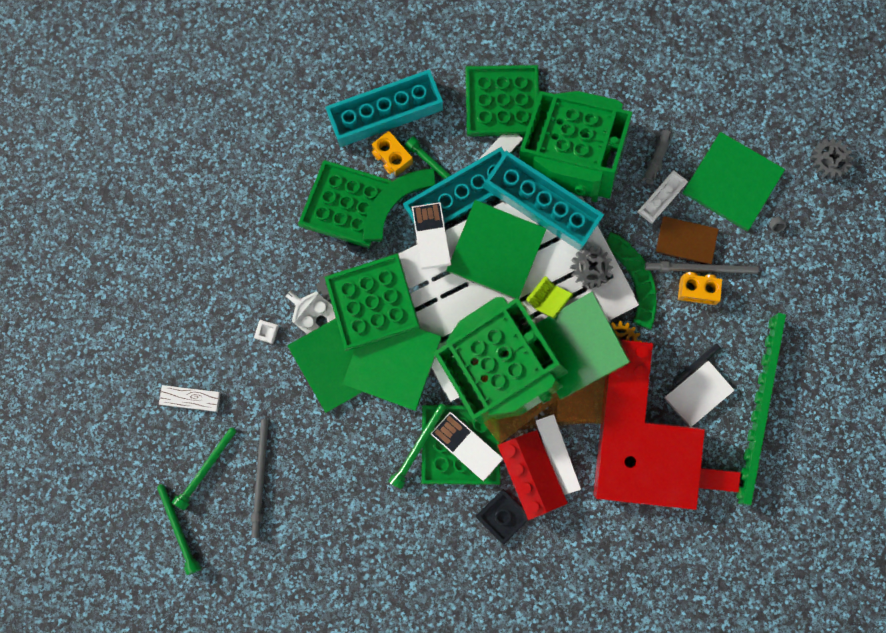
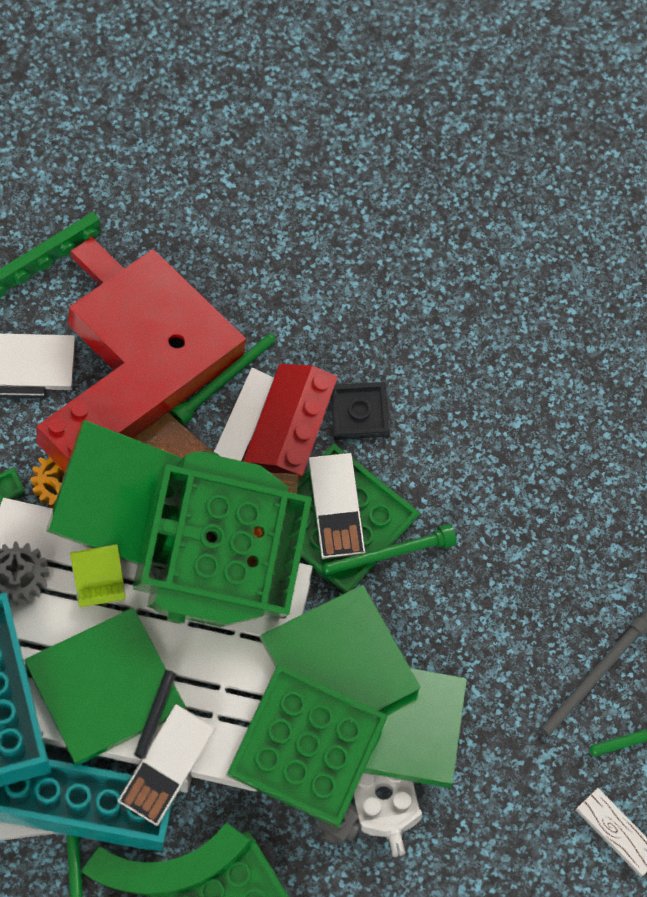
camera: 145 degrees left, 10 degrees down
(266, 331) = (461, 838): white tile -> none
(457, 252) = (155, 714): none -> black bar
(593, 433) = (184, 411): none -> green piece

